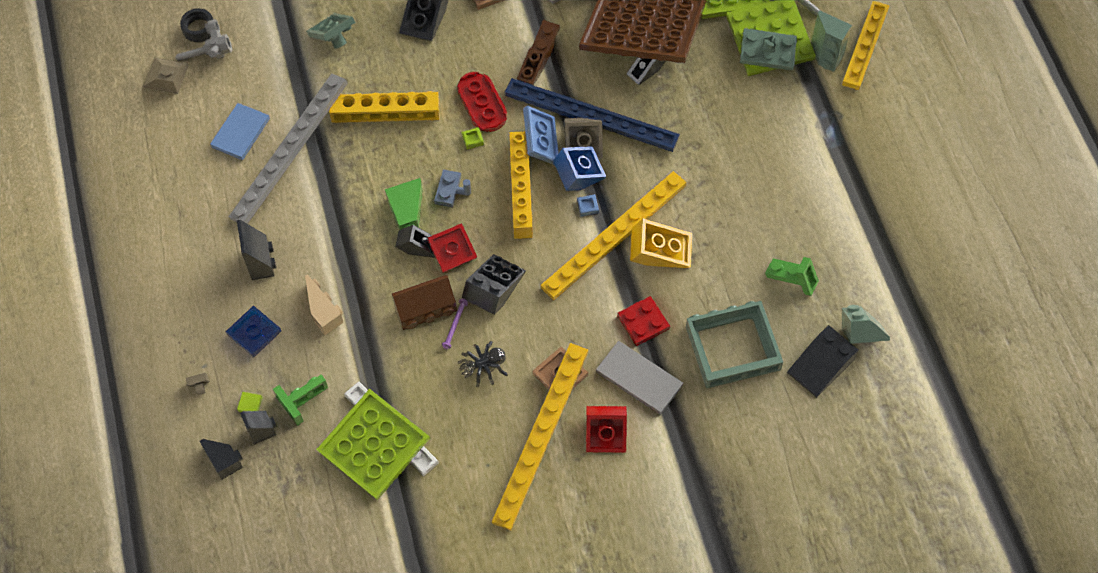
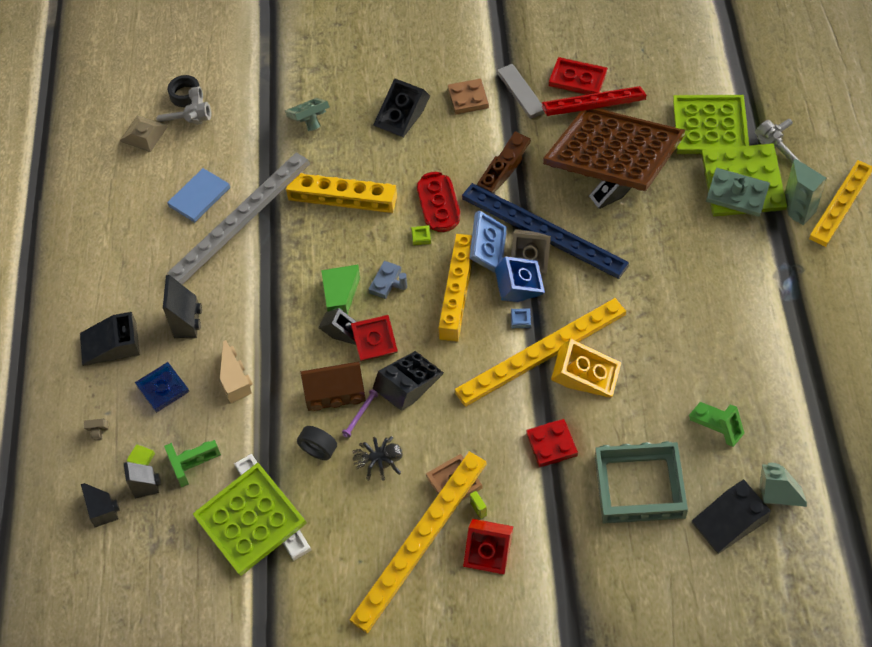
camera: 15 degrees right, 5 degrees down
(188, 293) = (110, 340): none -> black slope
(421, 359) = (317, 442): none -> black tyre
(588, 392) = (478, 505): none -> lime tile
(639, 377) = (535, 500): light grey tile -> none

